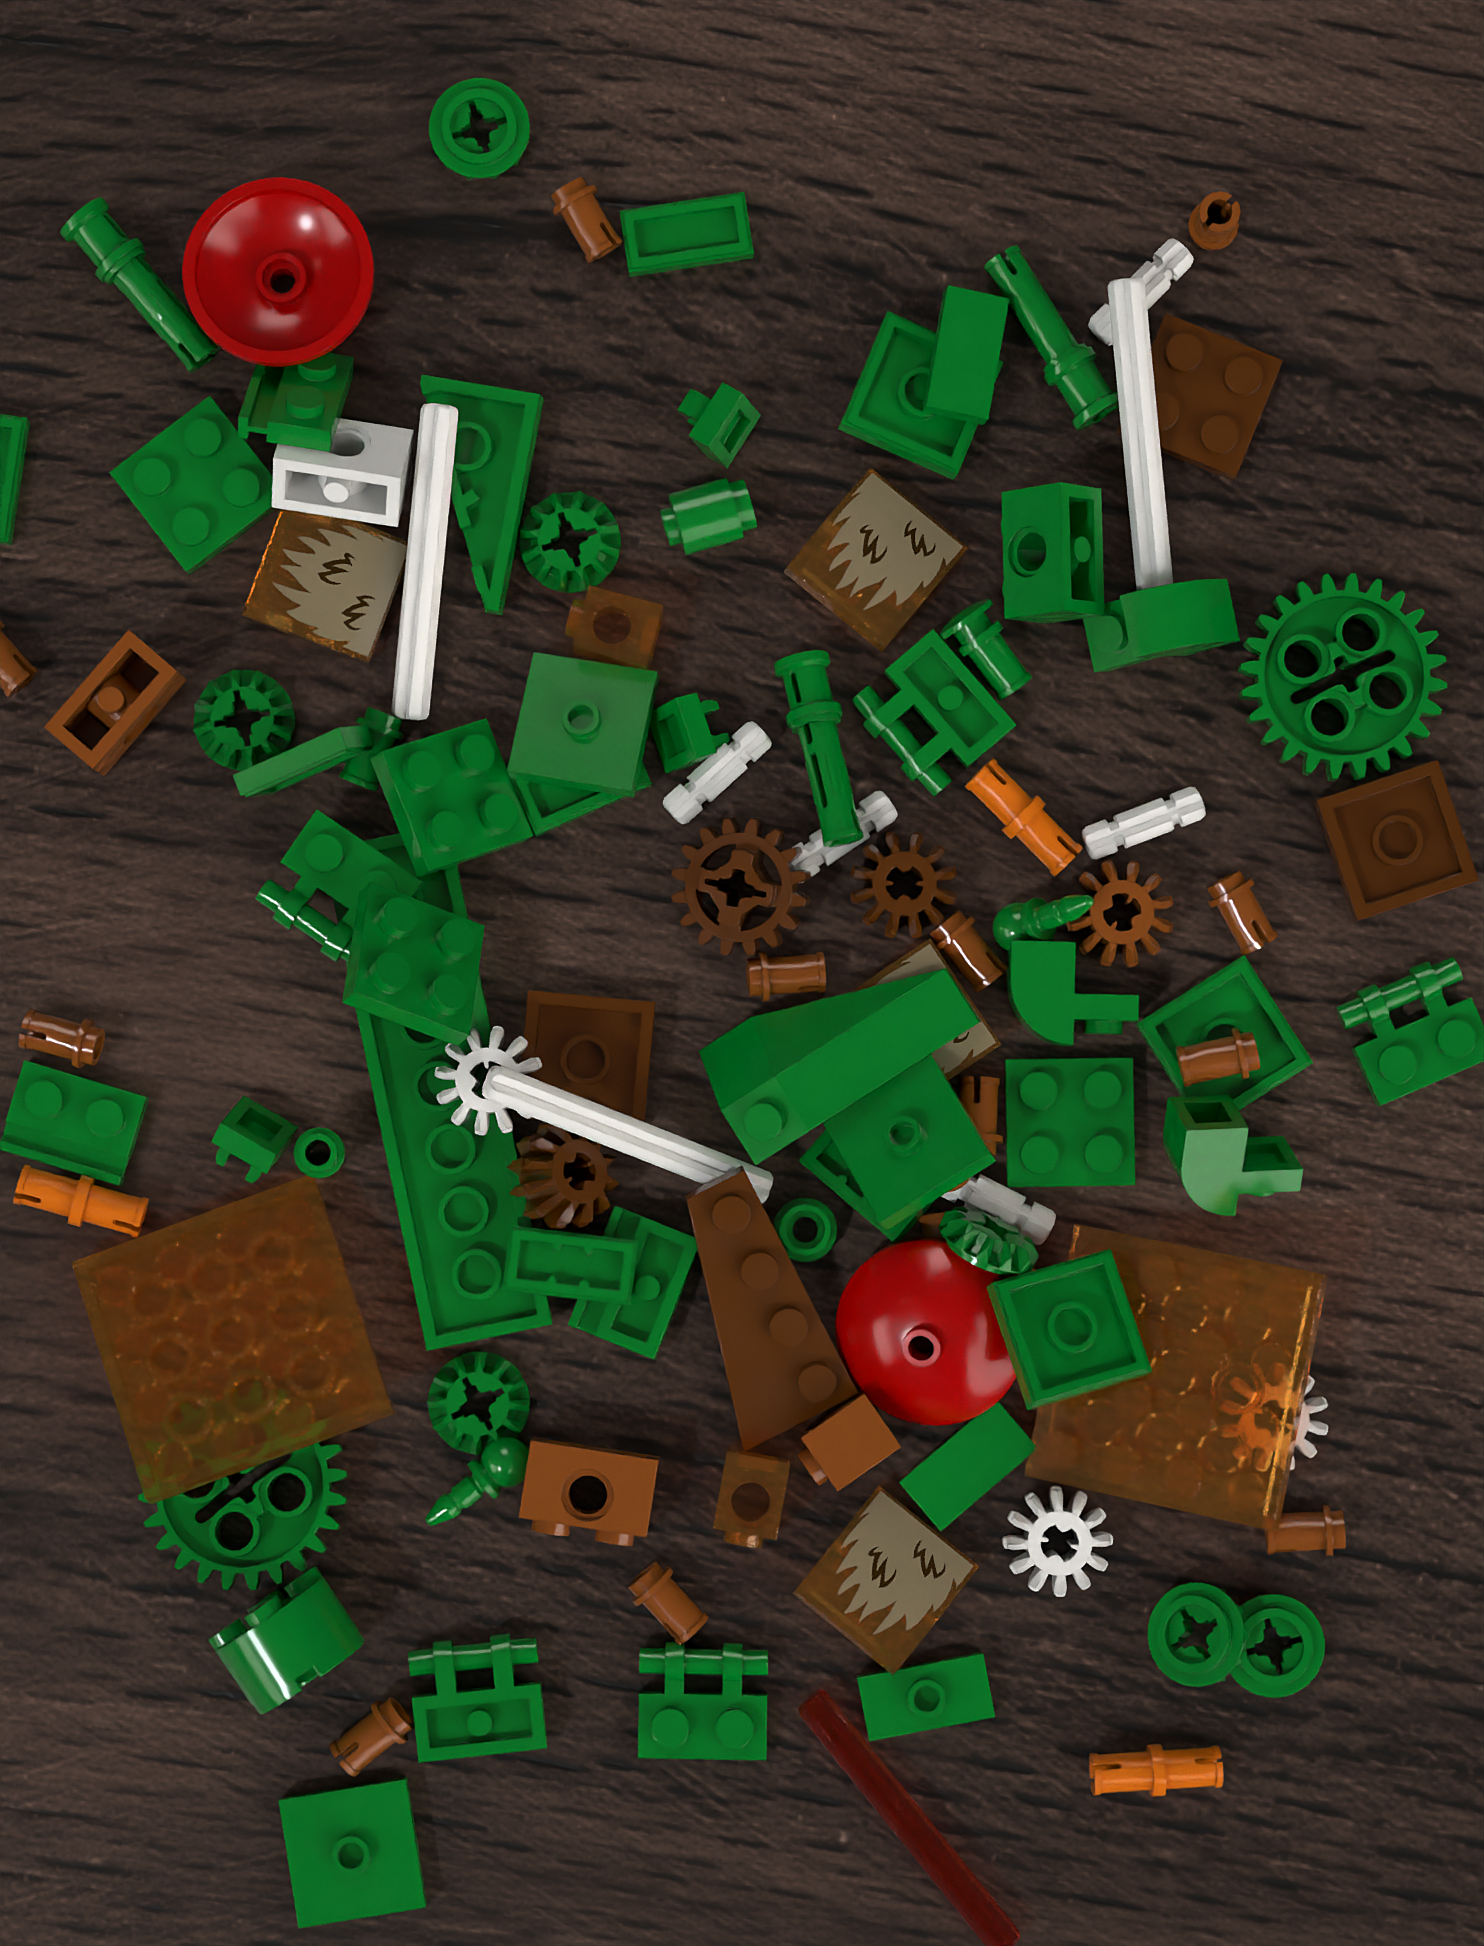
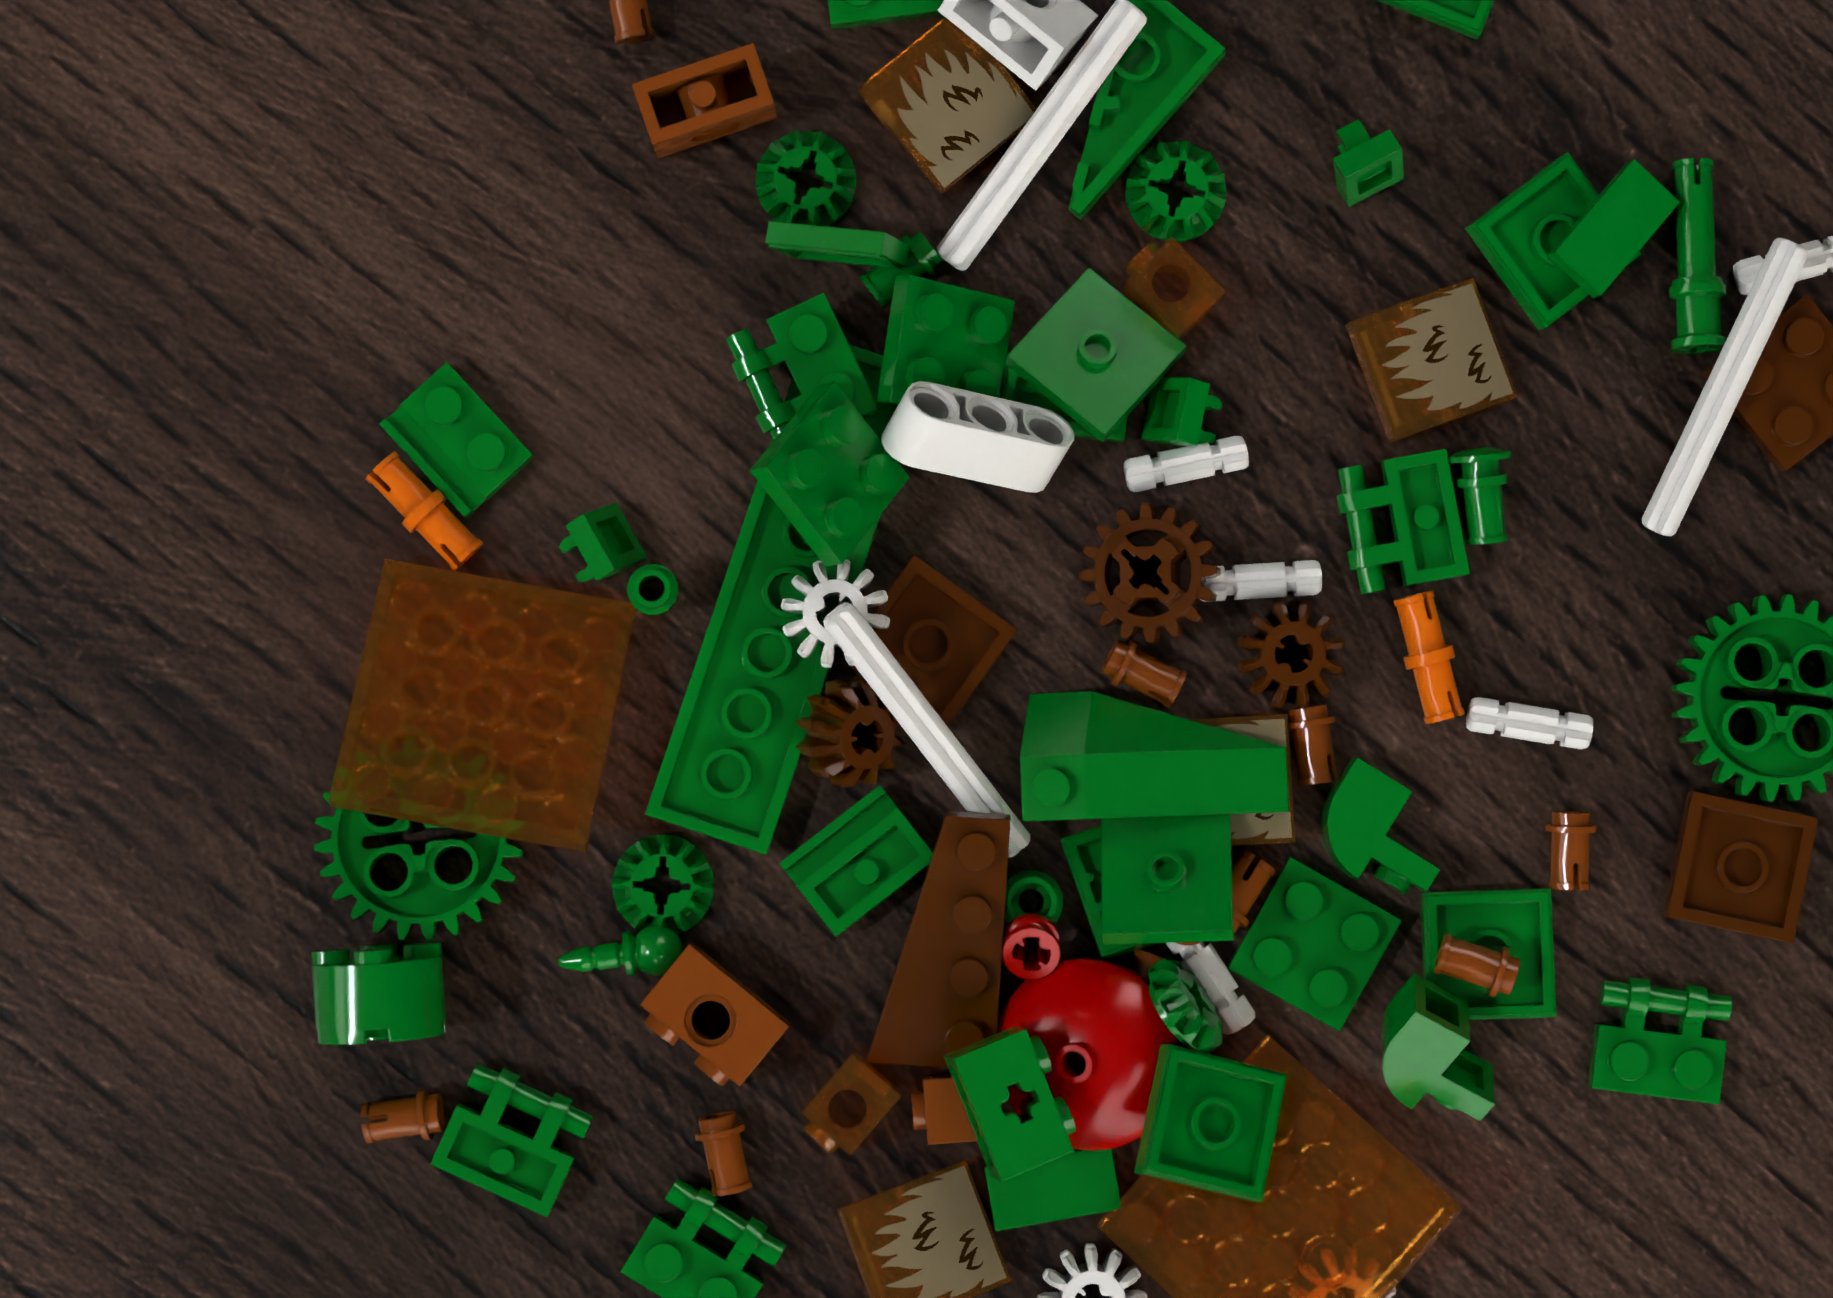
camera: 30 degrees right, 0 degrees up
(63, 1037) = (491, 362): dark orange pin -> none
(352, 1852) = (328, 1207): green plate -> none
(522, 856) = (977, 437): none -> white beam
(570, 1265) = (811, 813): green plate -> none
(708, 515) = (1309, 237): green brick -> none
(814, 719) = (1297, 468): green pin -> none
(838, 1252) = (1013, 954): none -> red bush
(849, 1406) = (1006, 1140): none -> green brick
(1037, 919) = (1390, 752): green bar -> none
(1052, 553) = (1589, 443): green brick -> none
(1136, 927) = (1455, 768): dark orange gear -> none
(1162, 623) = (1647, 558): green brick -> none

